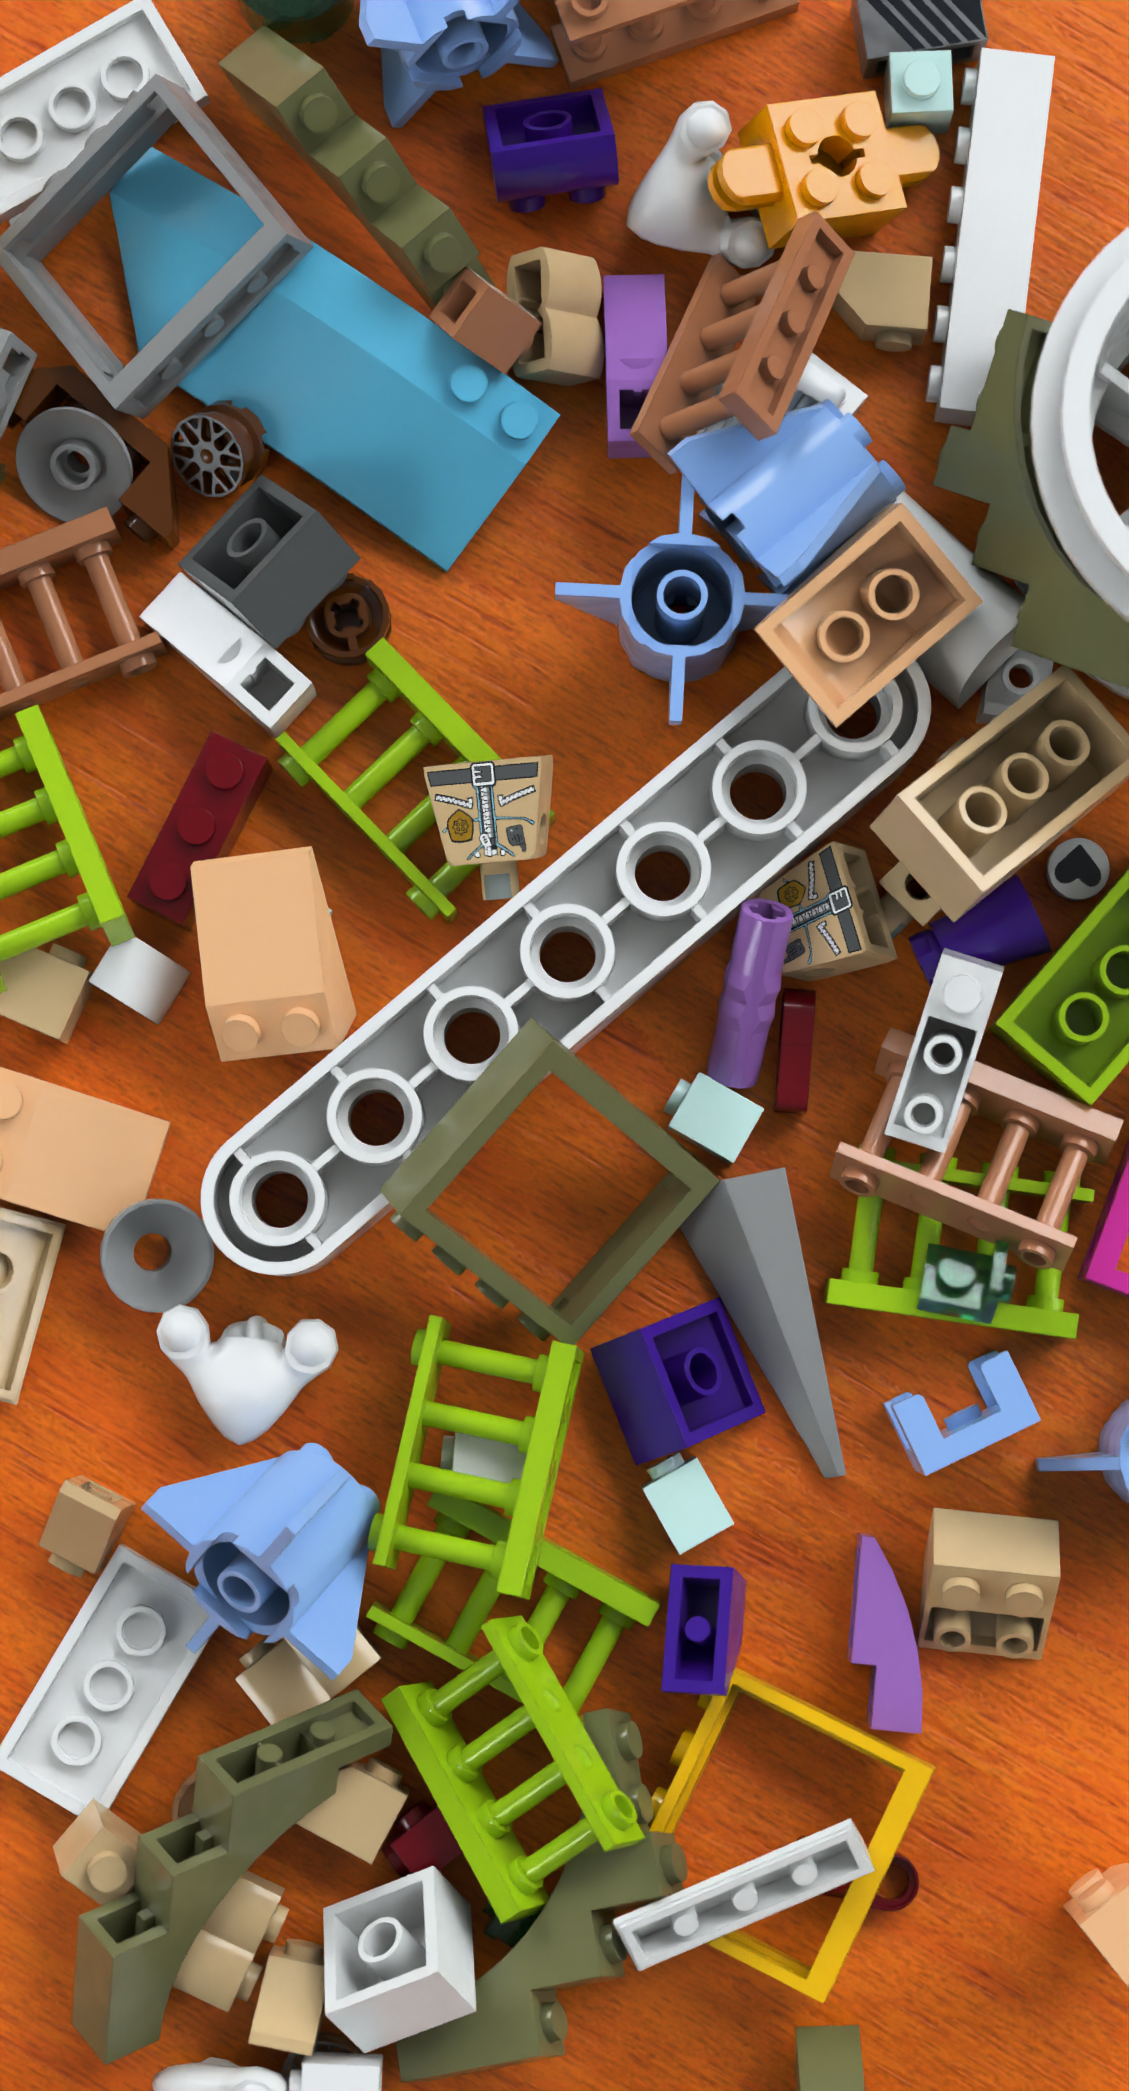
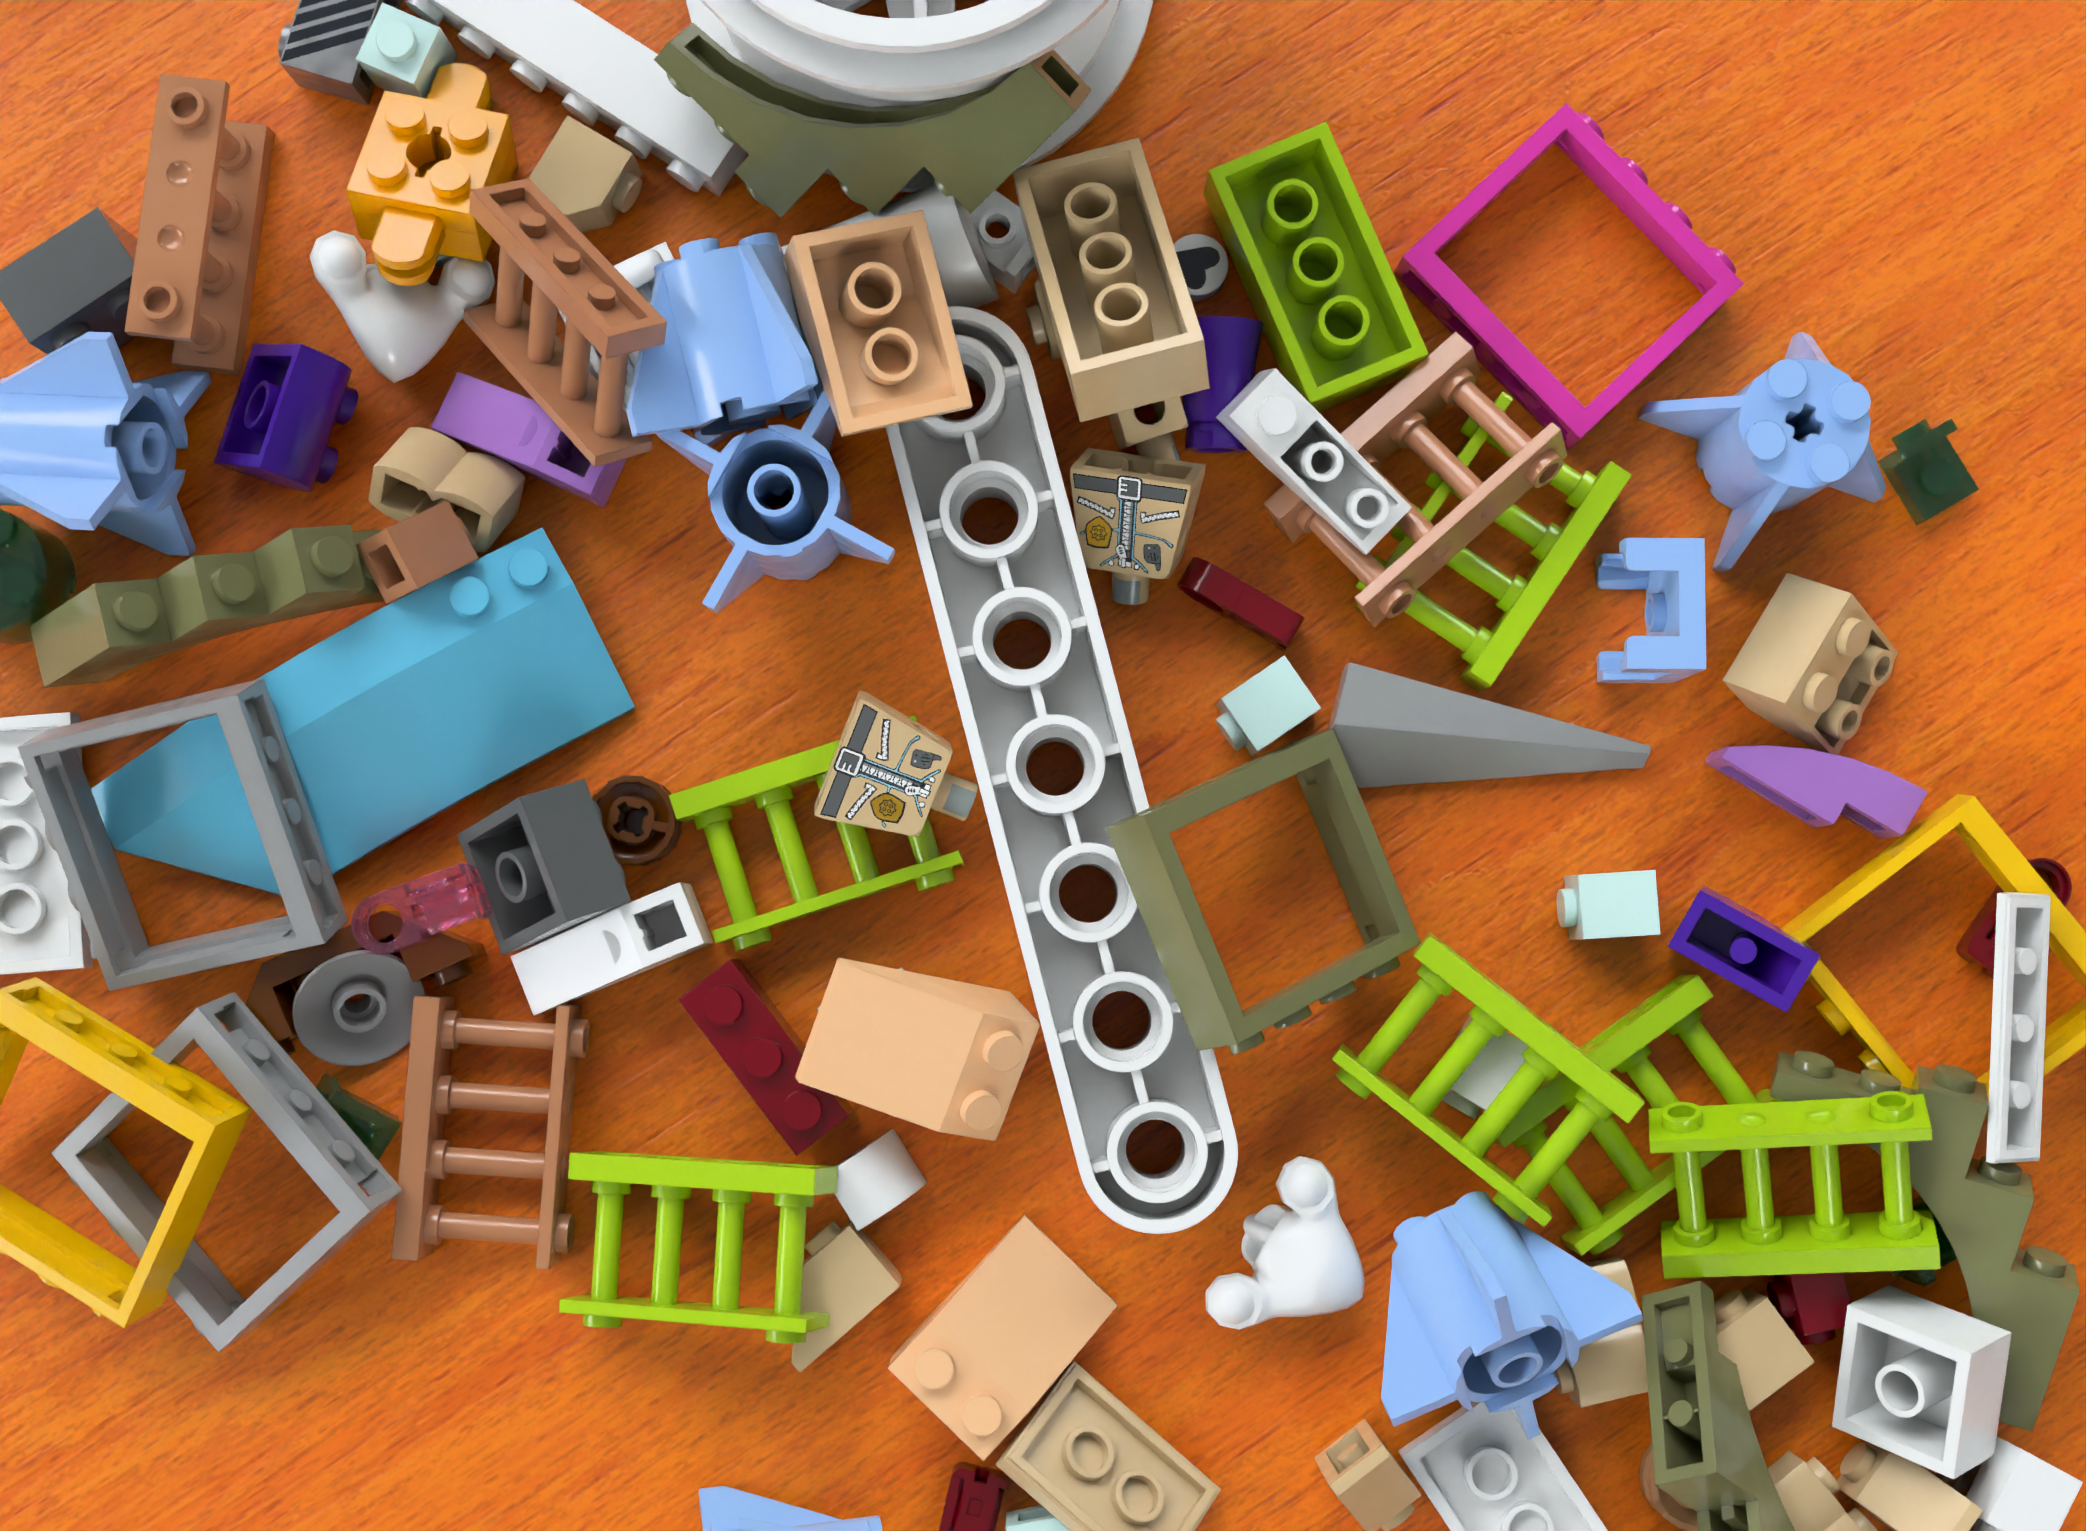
camera: 70 degrees left, 0 degrees up
(183, 1272) = (1177, 1286): light grey piece -> none
(189, 478) = (425, 905): none -> clear pink piece
(209, 464) = (406, 835): reddish brown wheel -> none
(677, 1381) = (1494, 859): dark purple slope -> none
(749, 992) = (1171, 615): medium lavender axle -> none
(965, 1282) = (1535, 547): clear green bracket -> none

